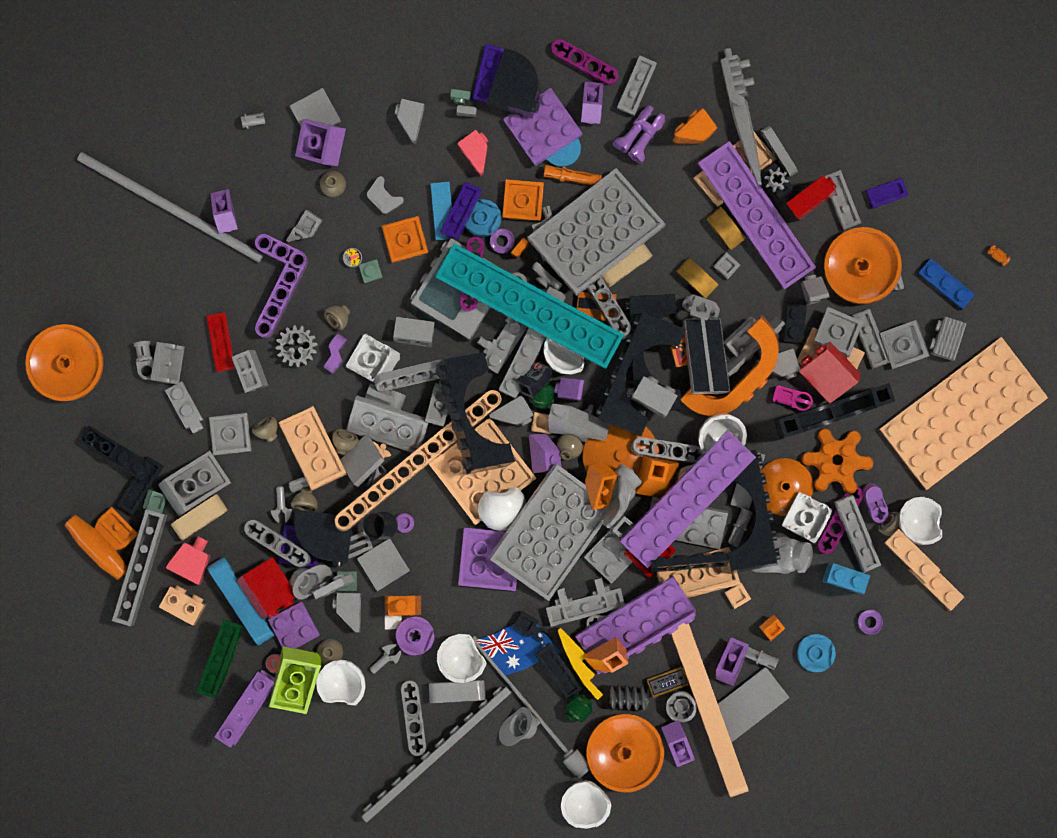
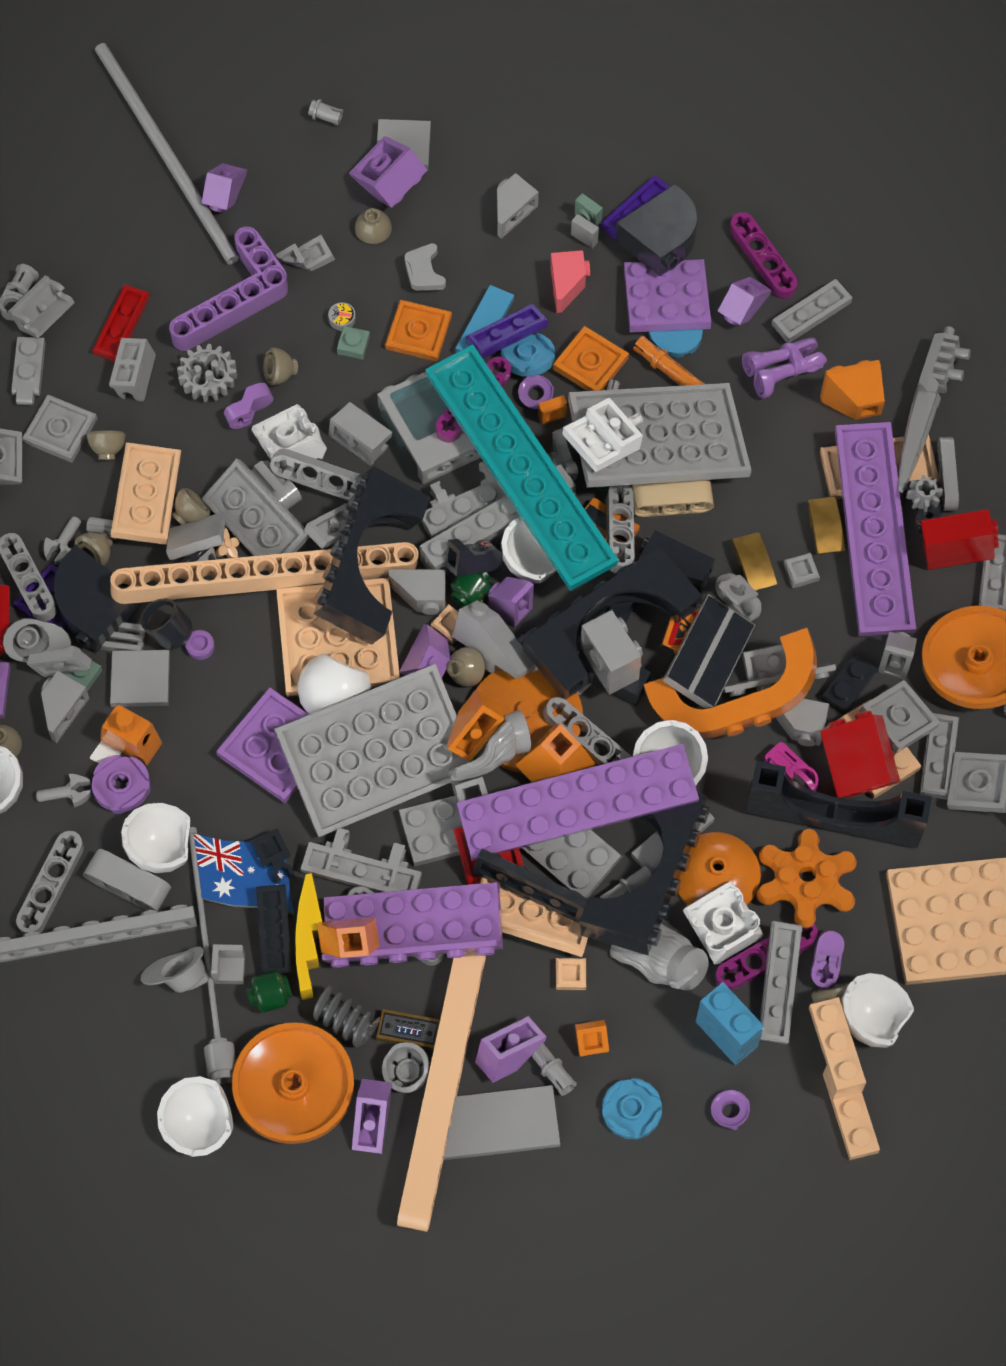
camera: 30 degrees right, 20 degrees down
(545, 706) = (228, 964): none -> light grey panel
(569, 258) = (604, 434): none -> white plate

